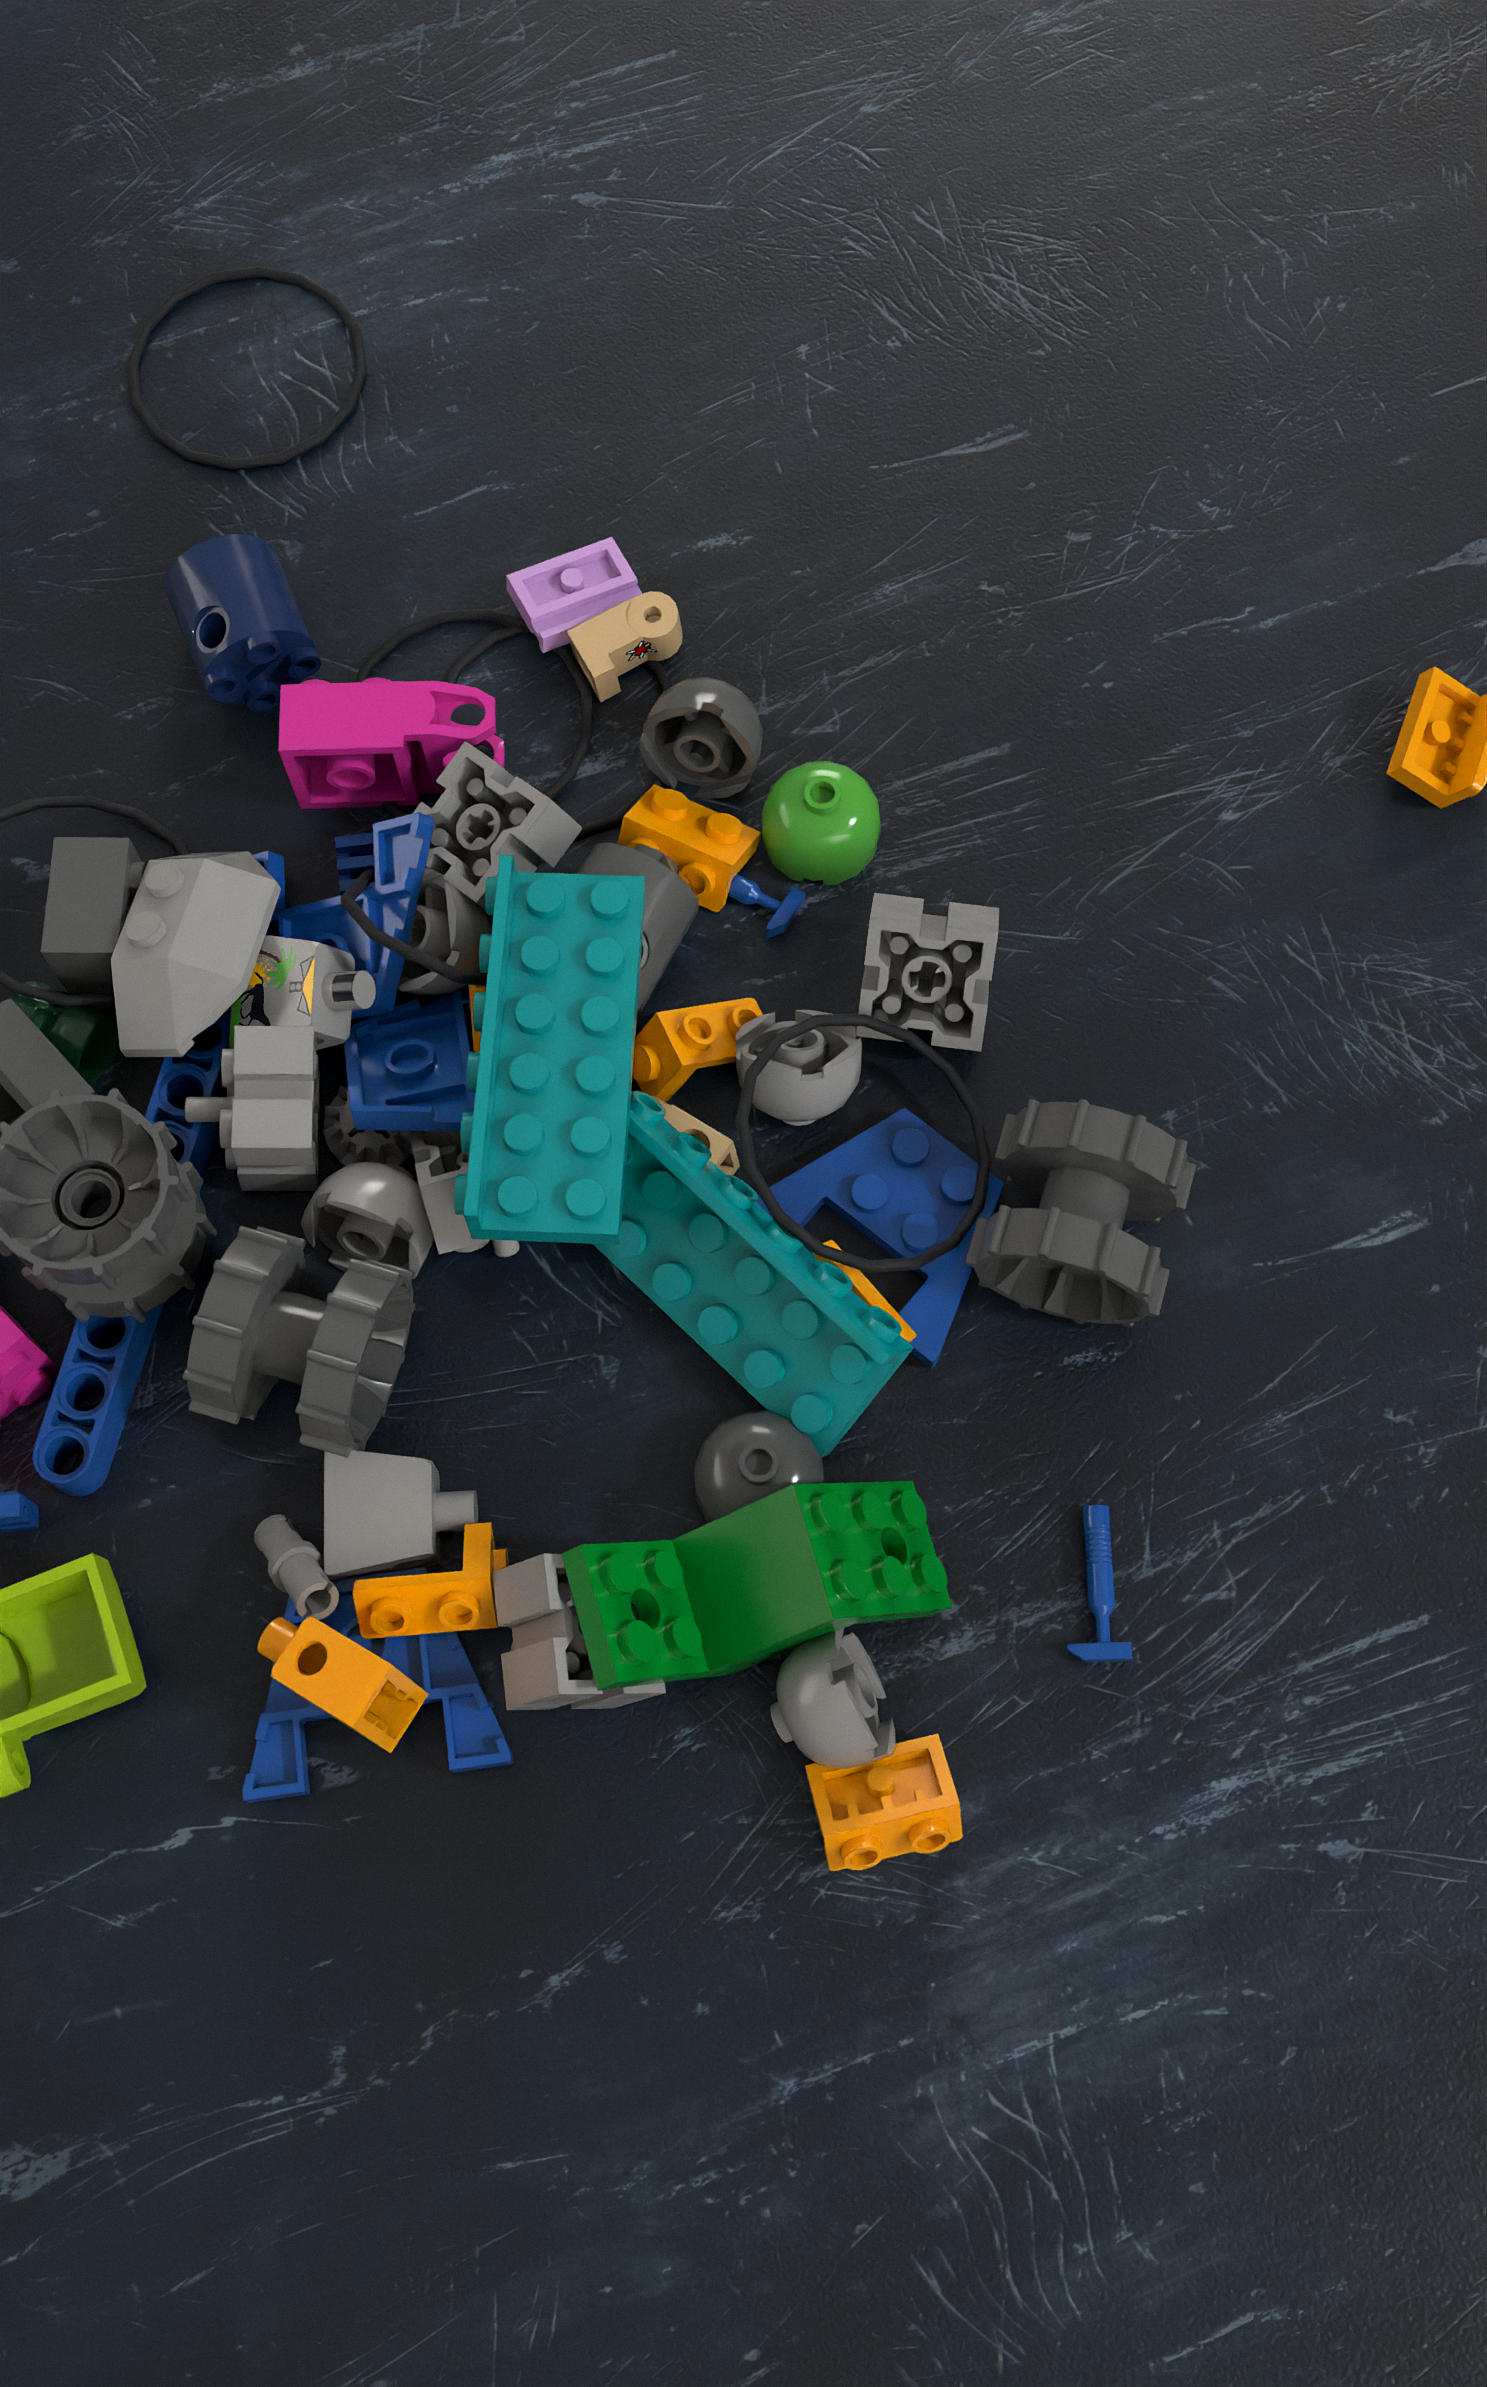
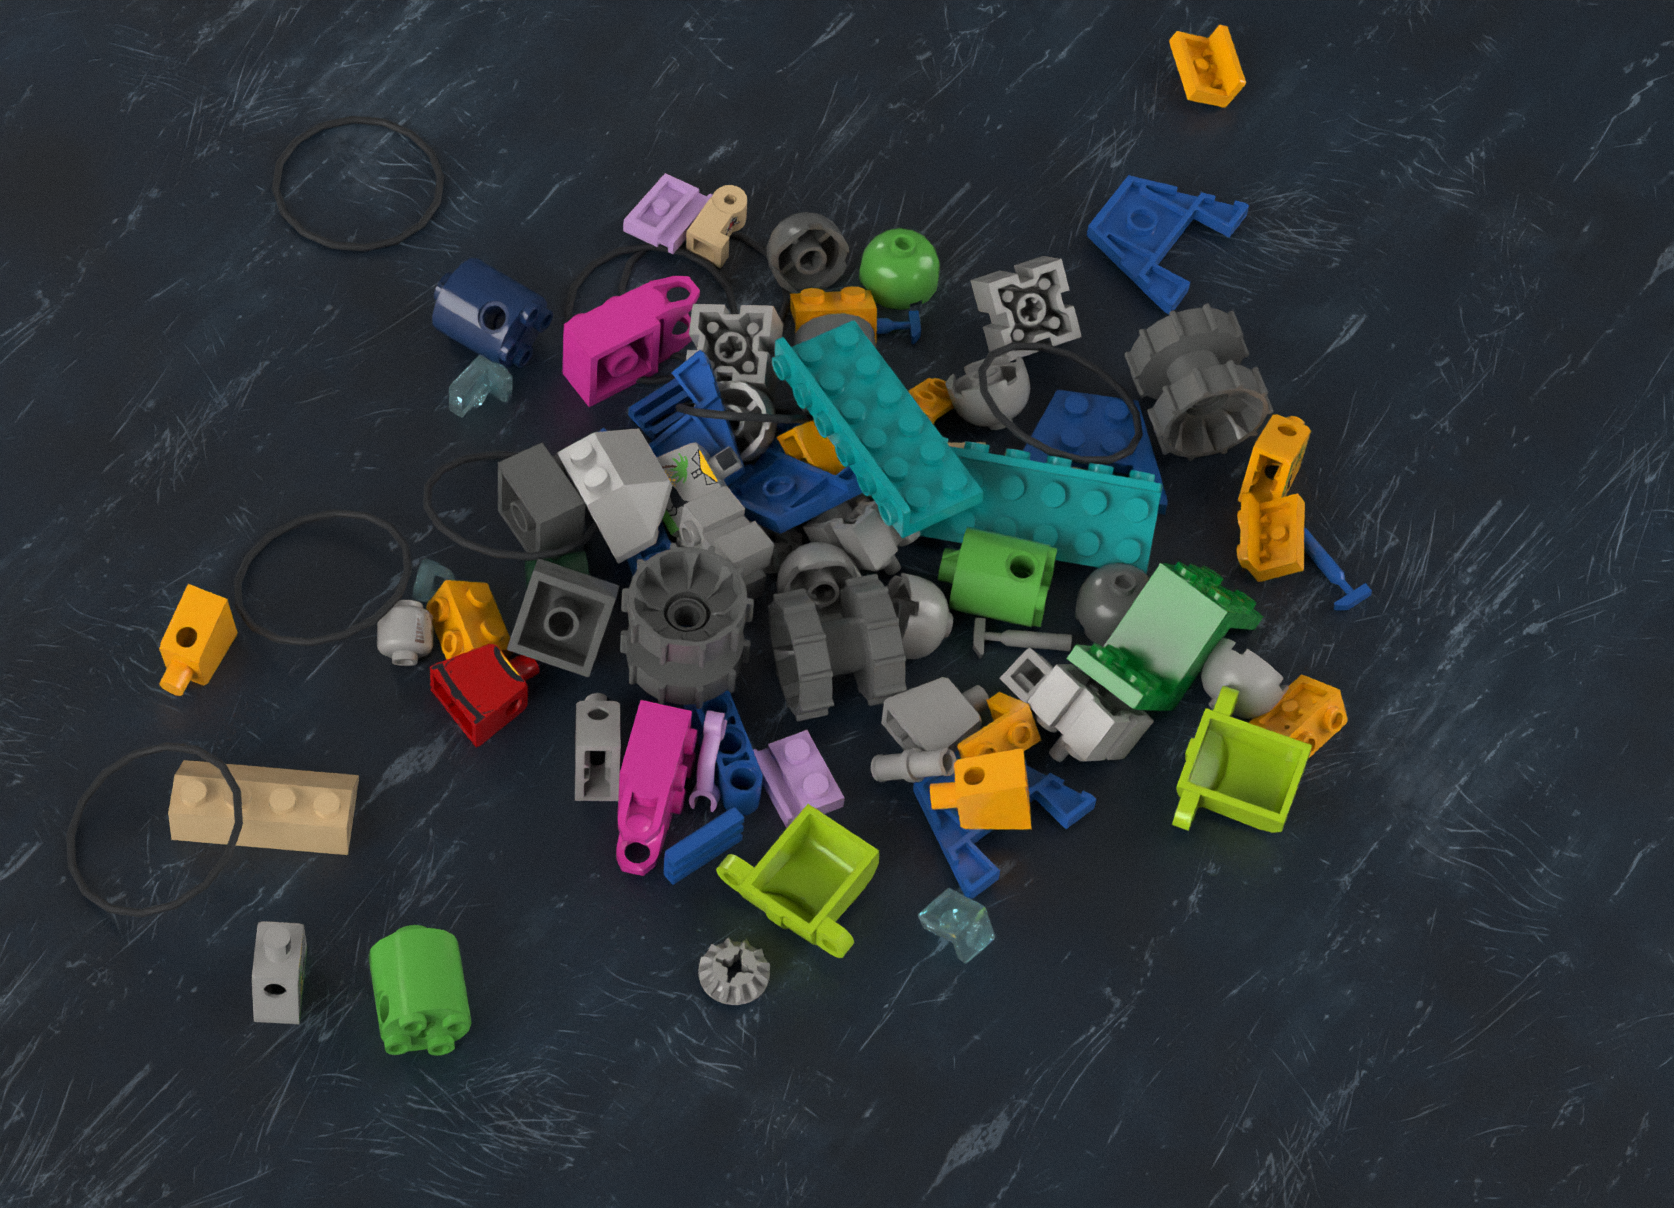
camera: 40 degrees left, 15 degrees down
(60, 1369) = (713, 733): none -> lavender arm
(161, 1484) = (797, 777): none -> lavender plate
(166, 706) = (476, 382): none -> clear light blue bracket
(199, 1833) = (960, 922): none -> clear light blue bracket
(462, 1347) = (921, 614): none -> light grey cylinder
(537, 1528) = (1027, 674): none -> light grey leg
(588, 1337) = (999, 576): none -> bright green cylinder
(595, 1446) = (1019, 638): none -> light grey piece
(726, 1845) = (1239, 770): none -> lime piece
(1041, 1494) = (1271, 536): none -> light orange bracket
(1125, 1384) = (1279, 445): none -> light orange torso
(1197, 926) = (1144, 224): none -> blue wing

